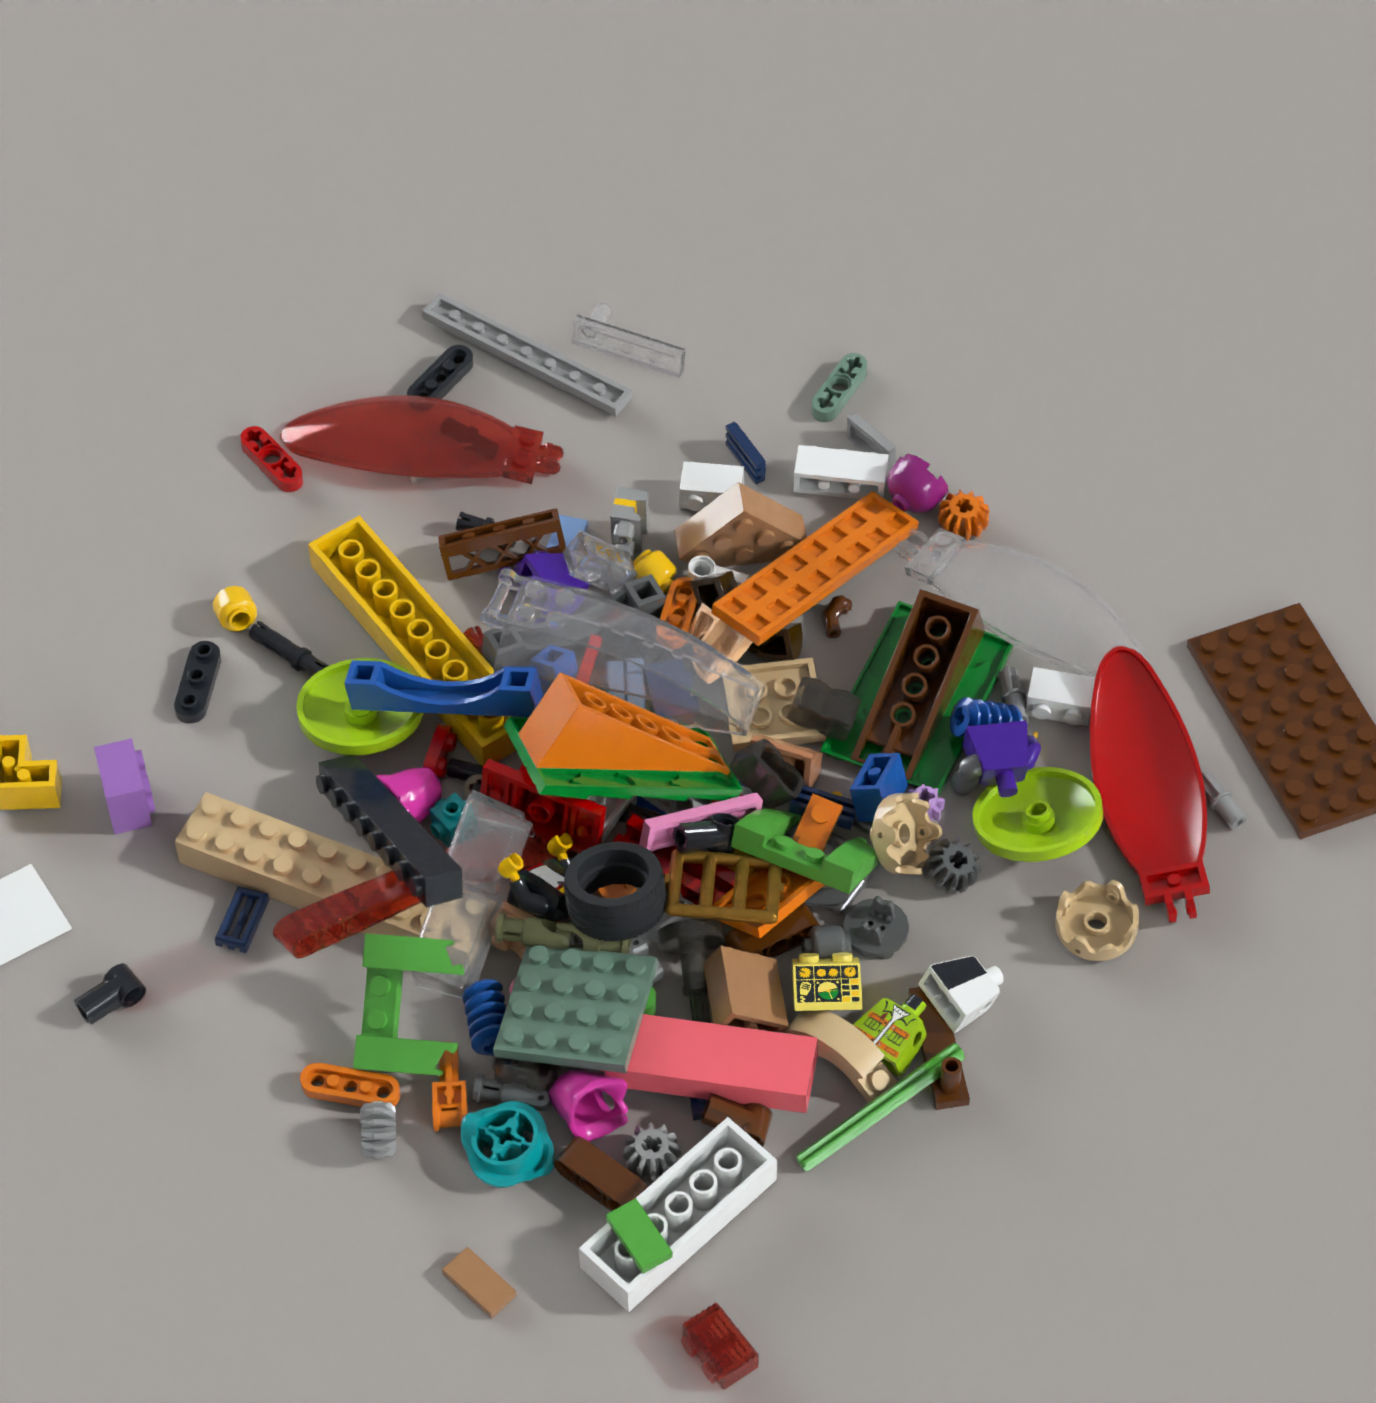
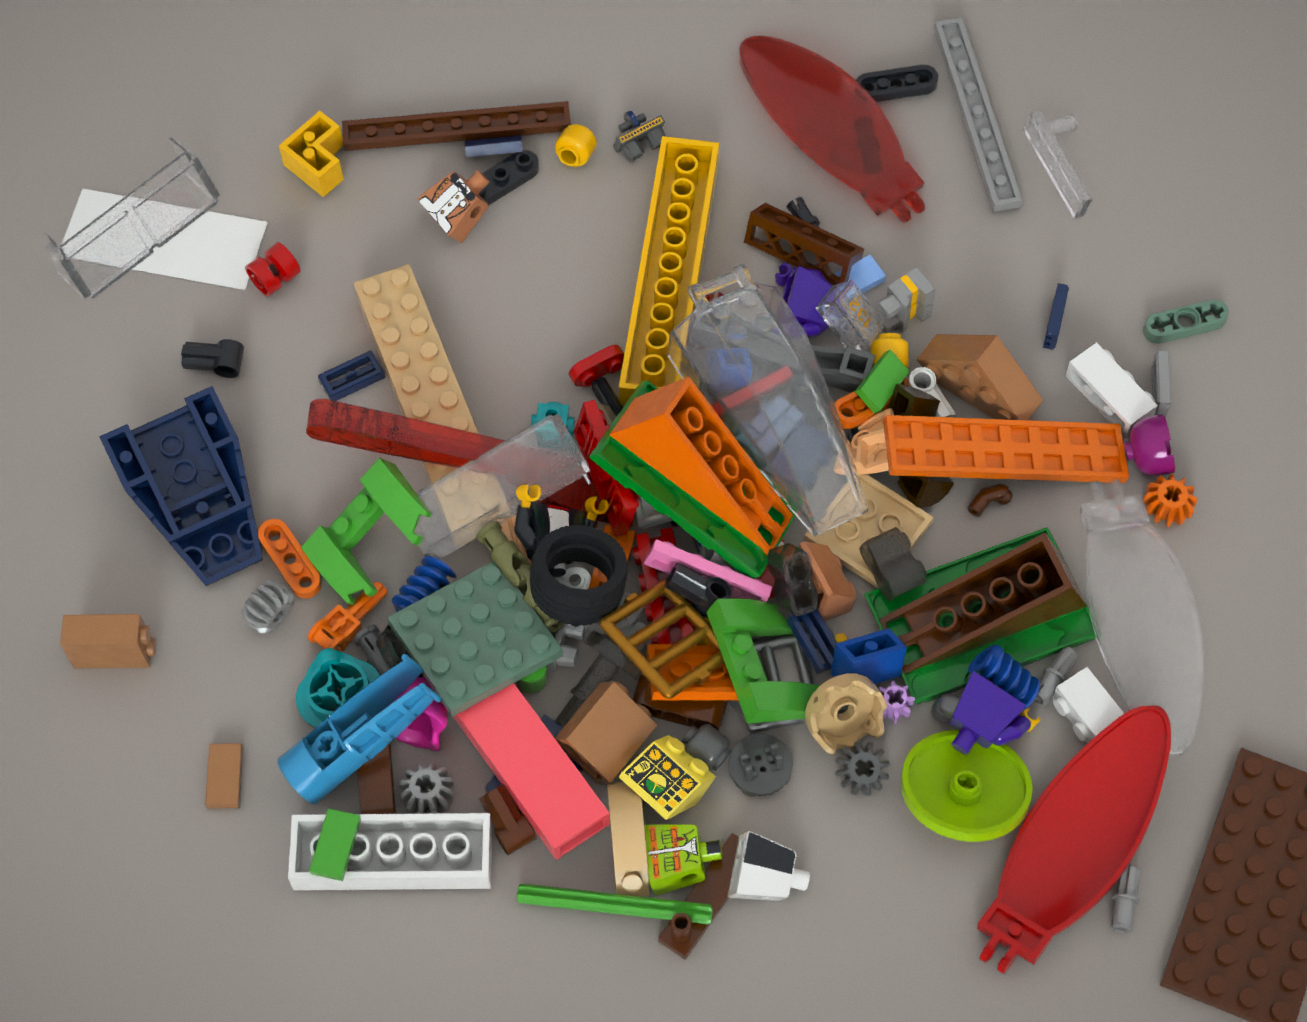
camera: 45 degrees right, 10 degrees up
(86, 889) = (280, 262): none -> red wheel
(116, 668) = (455, 126): none -> reddish brown plate
(125, 785) = (365, 215): medium lavender brick -> none
(165, 660) = (493, 146): none -> tile
(187, 721) = (456, 203): none -> torso
(210, 1094) = (191, 485): none -> dark blue wedge
(273, 471) = (723, 63): red beam -> none
(277, 1261) = (107, 641): none -> medium nougat brick
(286, 553) = (629, 142): none -> dark grey hips
(299, 657) = (581, 217): black pin -> none
(333, 725) = (577, 287): lime dish -> none
(385, 688) = (592, 285): blue arch -> none
(390, 830) = (481, 397): black brick -> none
(415, 789) = (537, 382): dark pink piece -> none
(562, 1151) = (356, 732): none -> dark azure piece
(676, 589) = (881, 381): none -> bright green tile
(705, 482) = (1001, 317): white brick -> none
(719, 1346) = (319, 974): clear red brick -> none
(817, 822) = (788, 651): orange plate -> none
(1100, 903) = (925, 885): tan plate -> none

